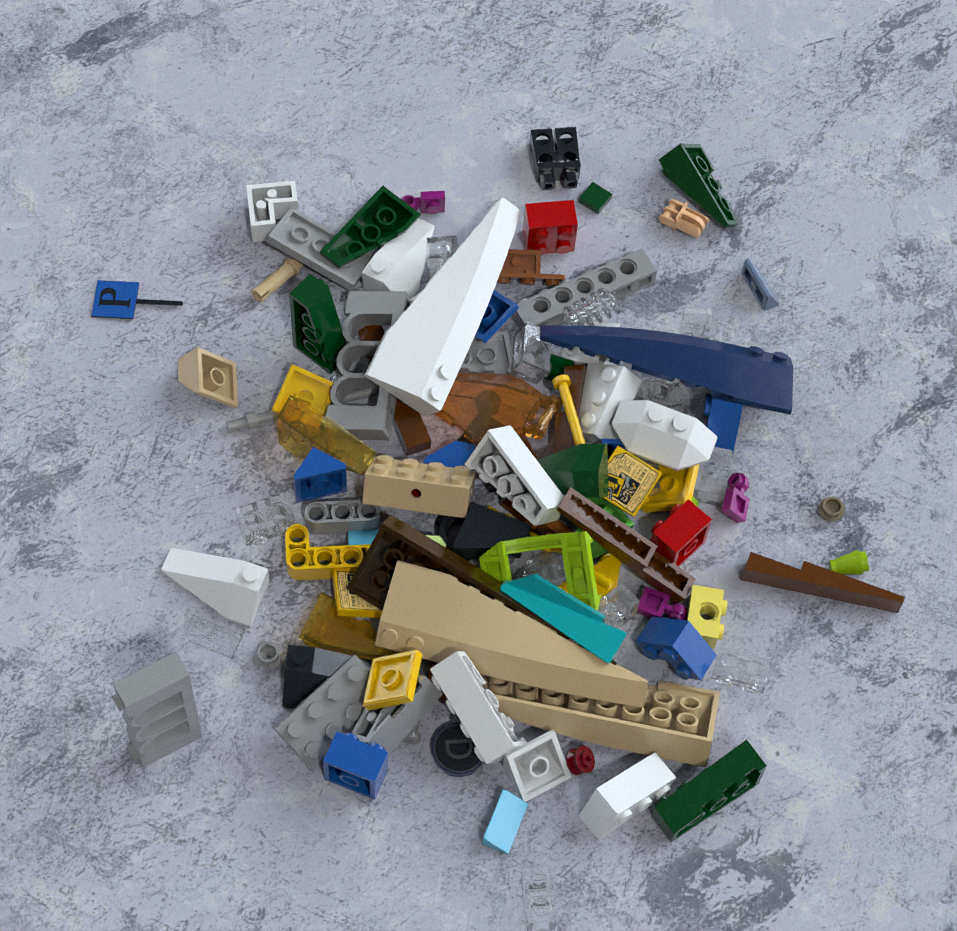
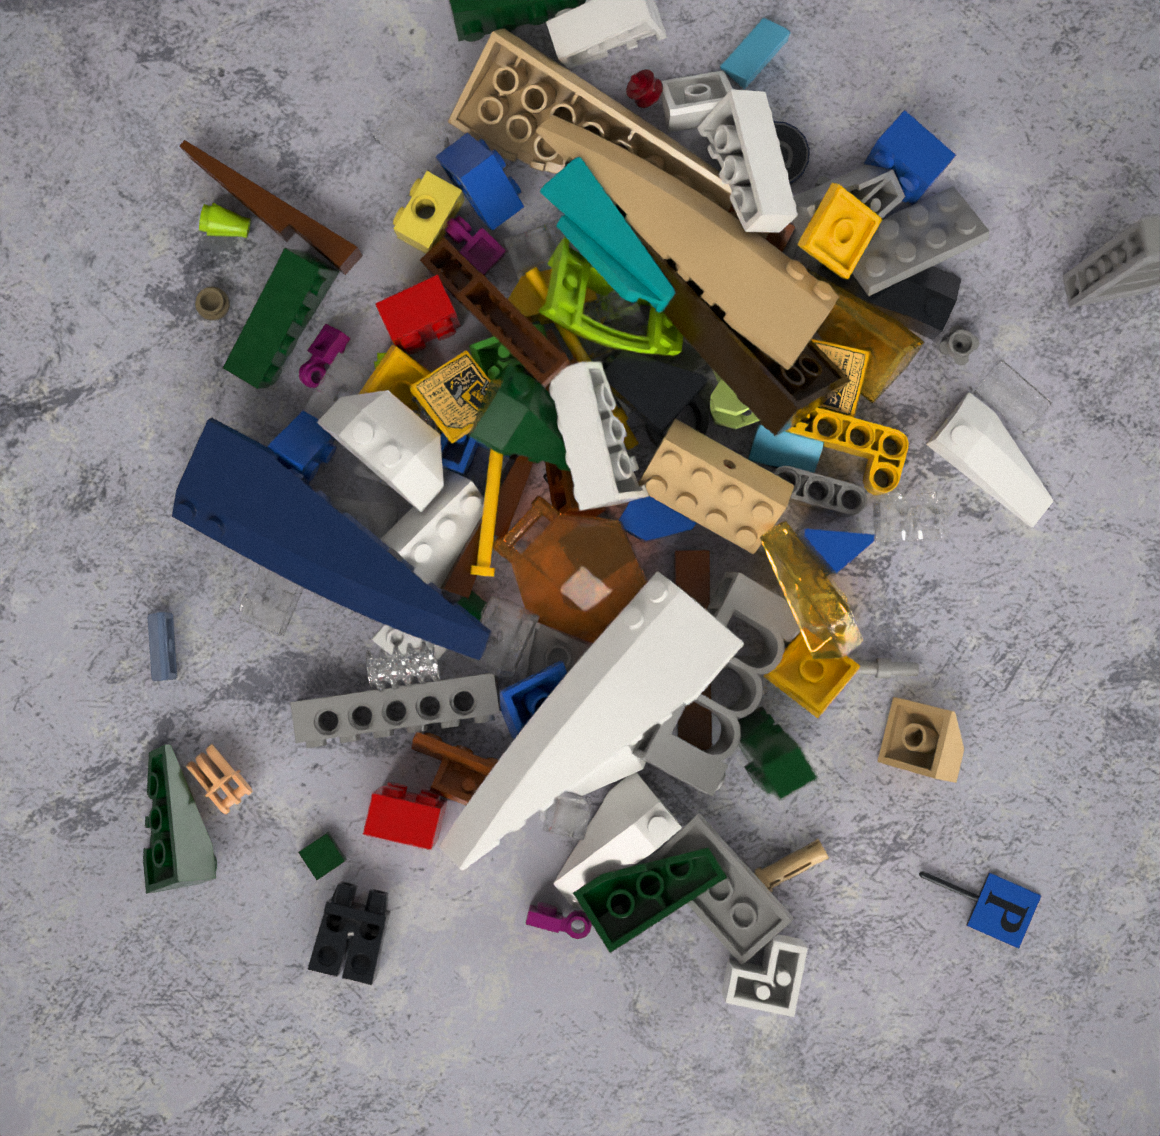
camera: 155 degrees left, 25 degrees up
(777, 507) = (279, 317): none -> dark green wedge

